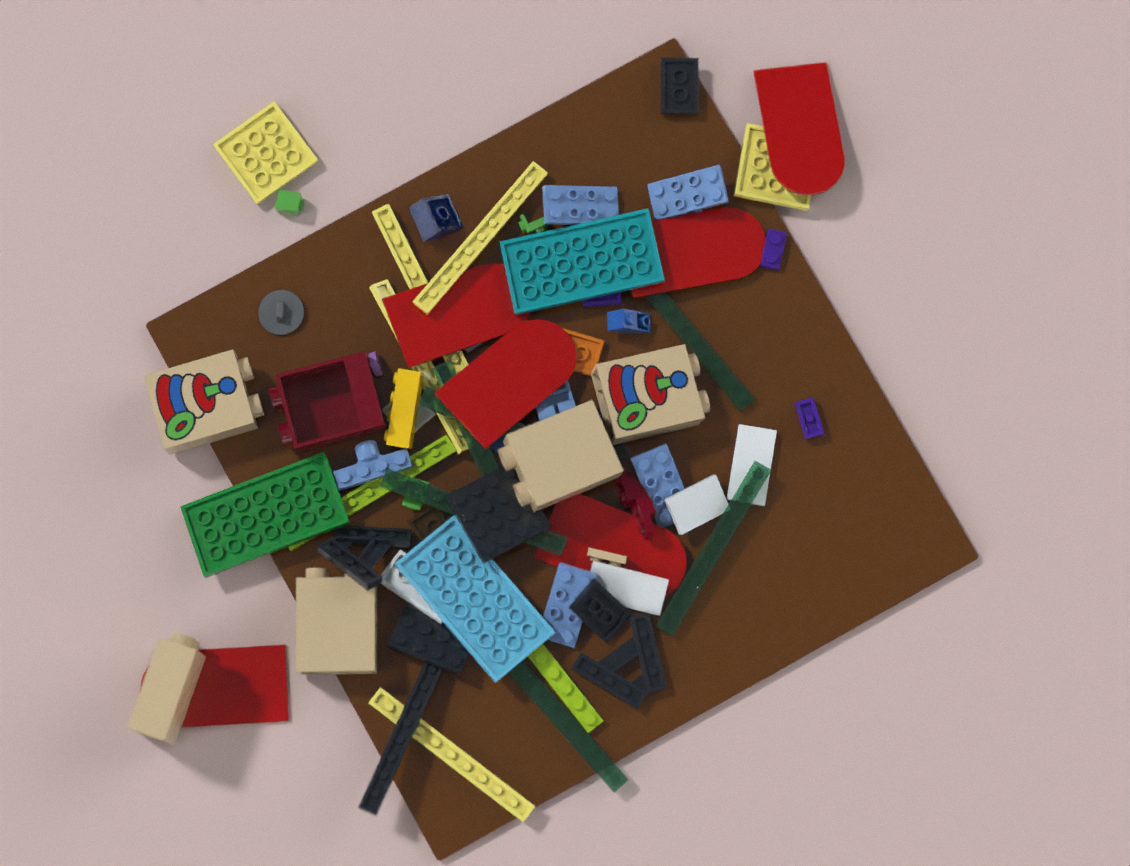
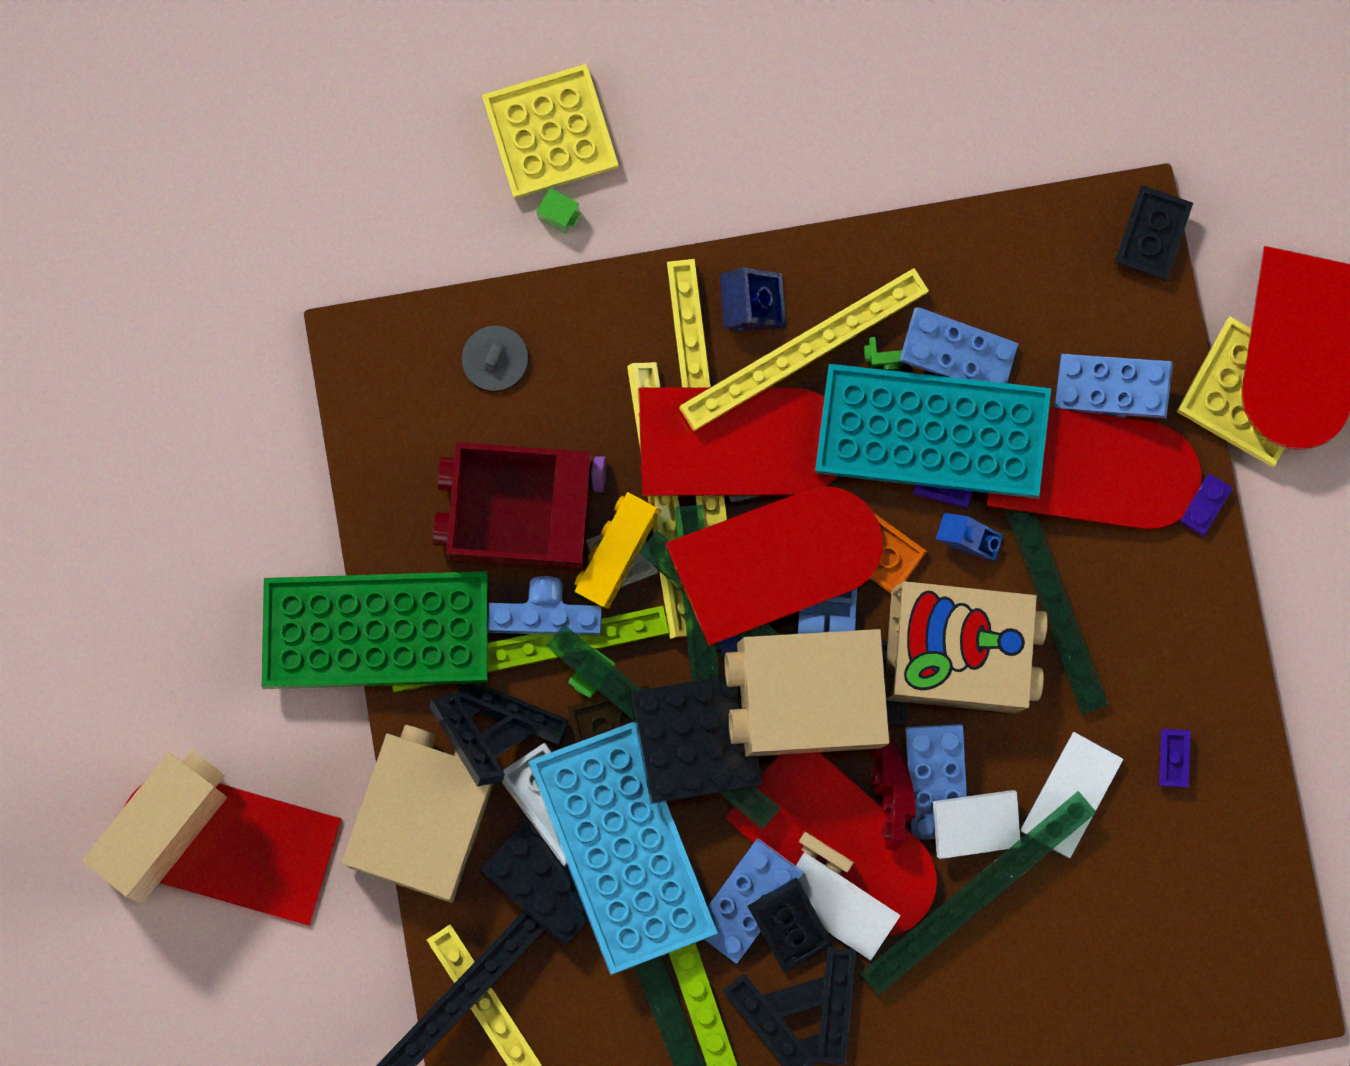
camera: 20 degrees right, 0 degrees up
(203, 401) = (345, 444): tan brick -> none

